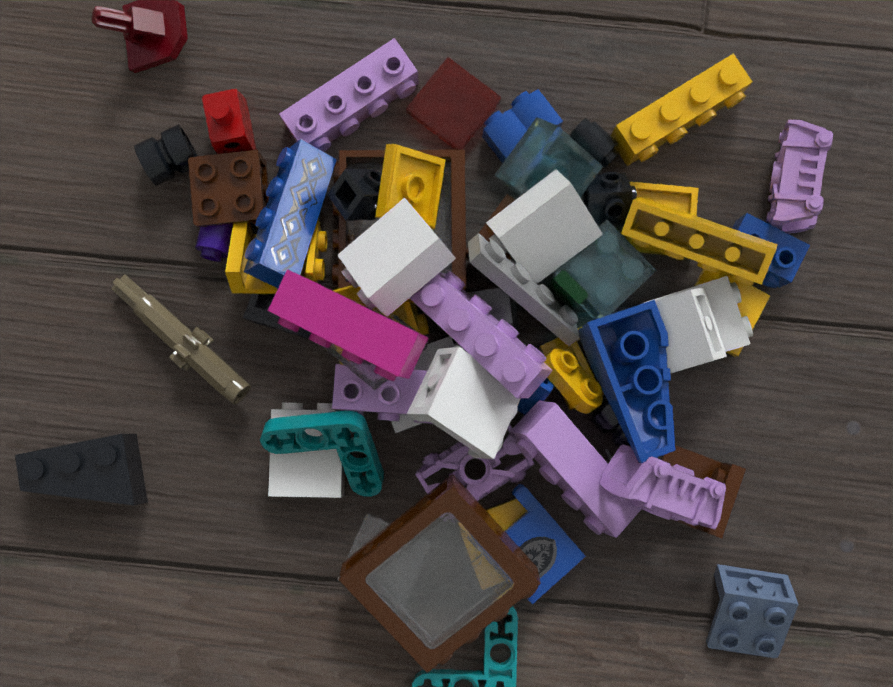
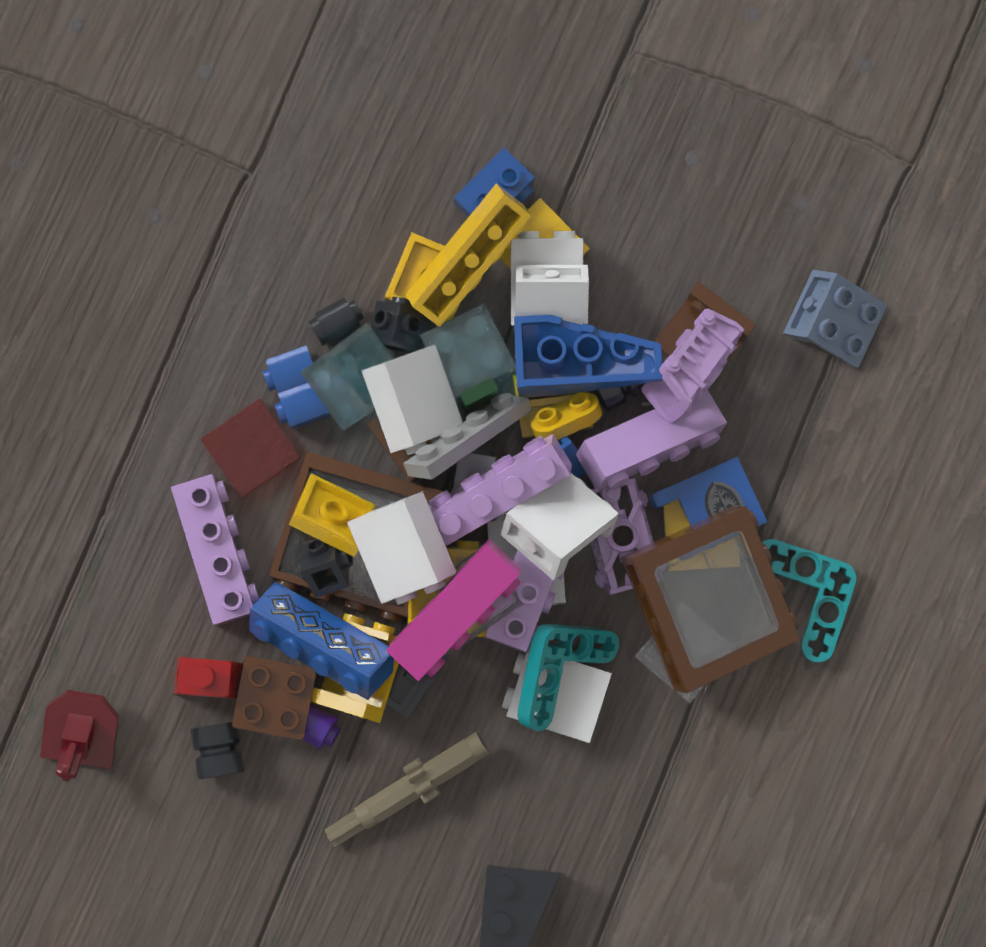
camera: 75 degrees left, 0 degrees up
(681, 109) = (329, 227): yellow brick -> none
(798, 176) = (435, 137): lavender piece -> none

